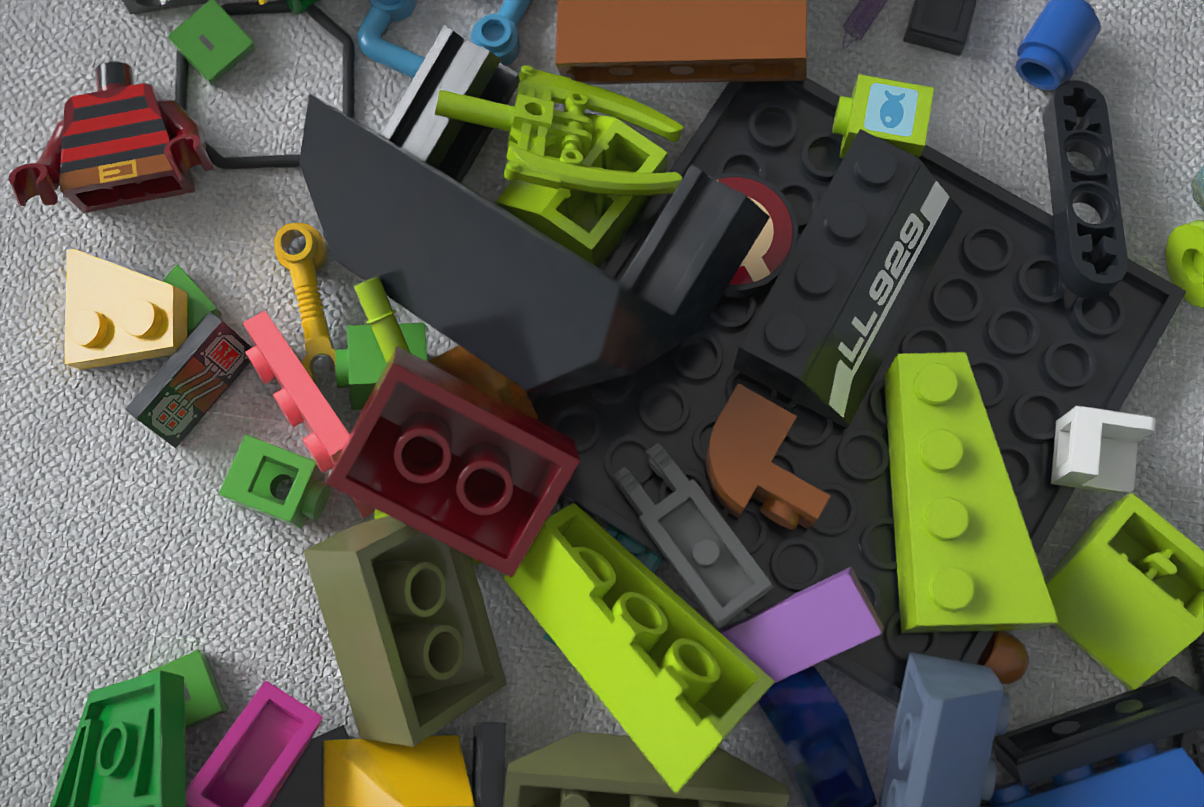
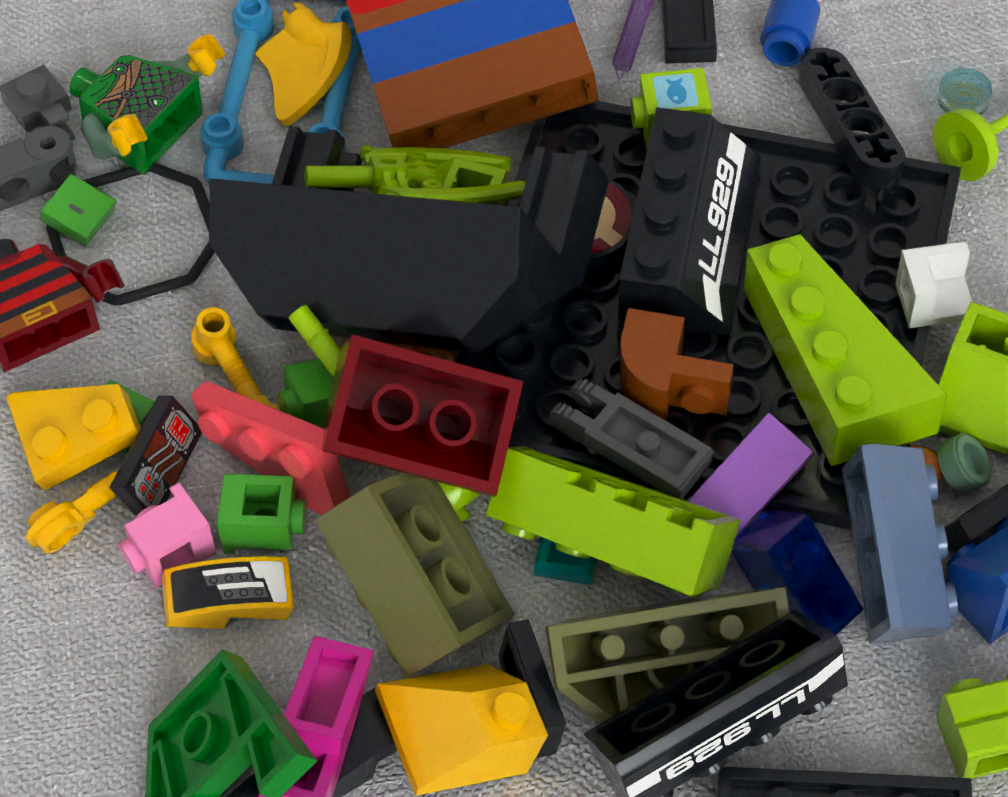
camera: 20 degrees left, 20 degrees down
(67, 424) = (58, 524): none -> yellow plate
(172, 479) = (167, 536): none -> bright pink brick
(217, 561) = (214, 590): none -> slope
(1051, 671) = (964, 463): none -> sand green tile

